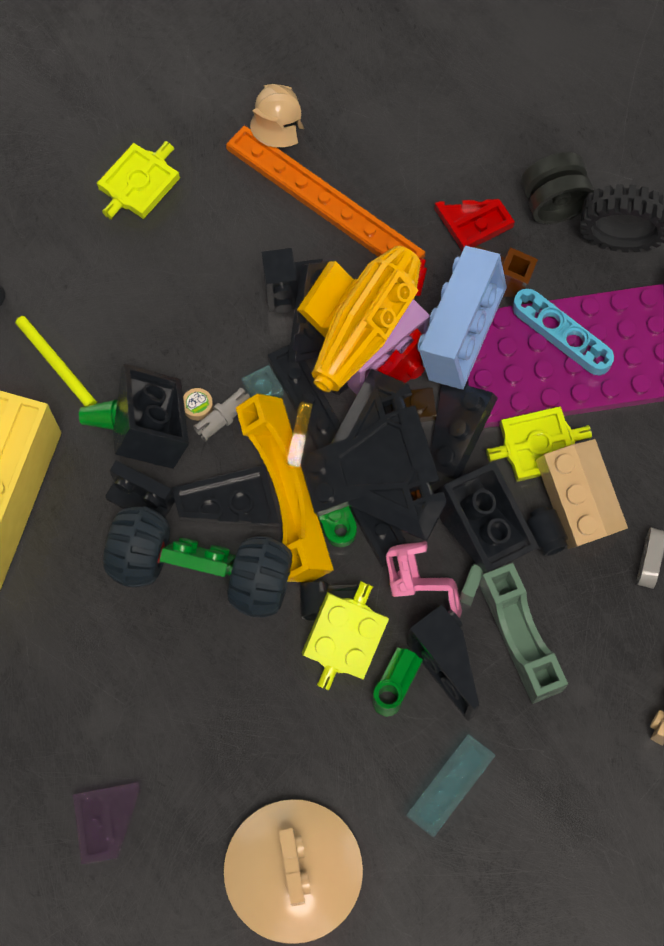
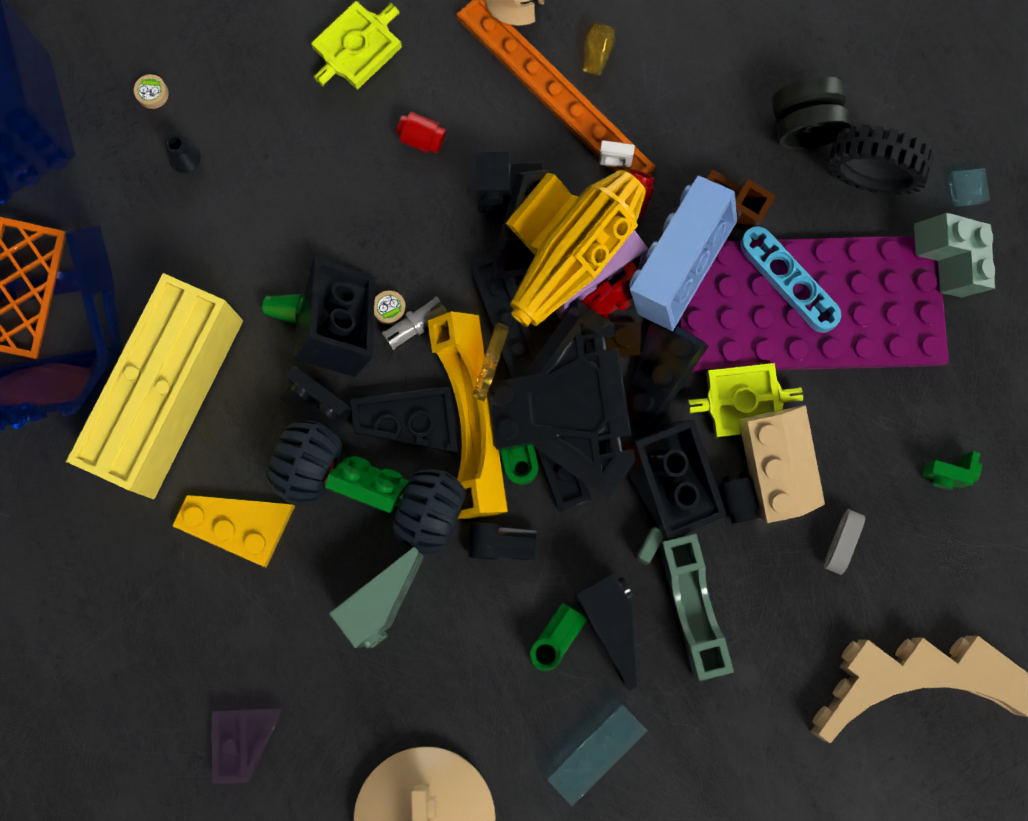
camera: 10 degrees right, 10 degrees up
(55, 361) = (245, 241): neon yellow bar -> none
(75, 619) = (235, 525): none -> yellow wing
(207, 248) = (421, 133): none -> red brick
(219, 669) = (376, 604): none -> sand green slope
(262, 382) = (460, 296): clear light blue plate -> none
(345, 635) = (510, 584): neon yellow plate -> none
(358, 157) = (598, 46): none -> clear yellow cone
(386, 240) = (616, 154): none -> white tile
(408, 579) = (583, 532): bright pink piece -> none
(474, 220) = (714, 137): red wing -> none

